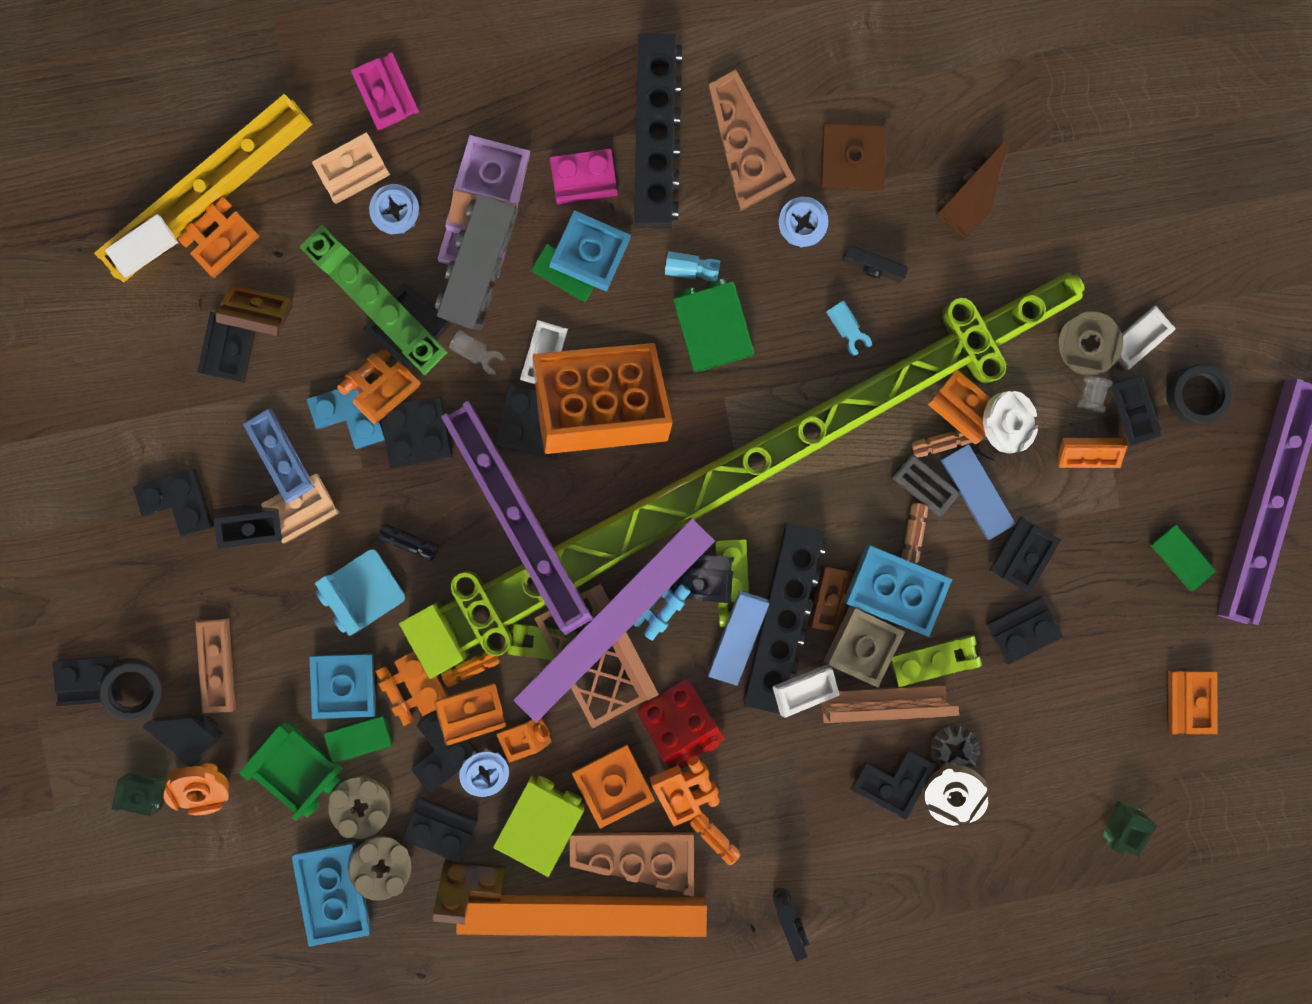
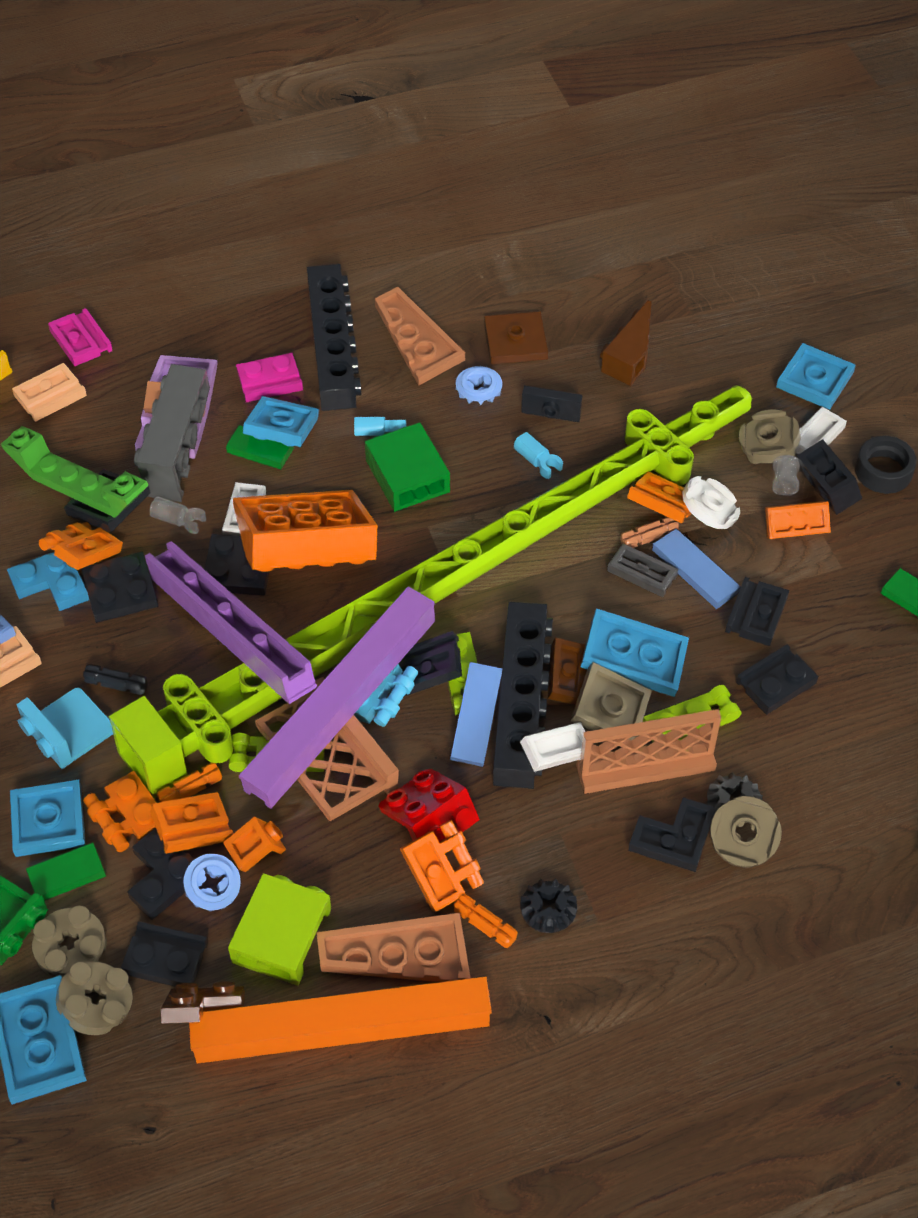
camera: 10 degrees left, 35 degrees down
(381, 203) = (99, 410): light blue gear -> none
(613, 785) = (361, 878): orange plate -> none
(775, 817) = (549, 919): none -> black gear
(791, 925) = (587, 984): black plate -> none
(915, 532) = (641, 602): nougat axle -> none
(1160, 263) = (816, 376): none -> dark azure plate

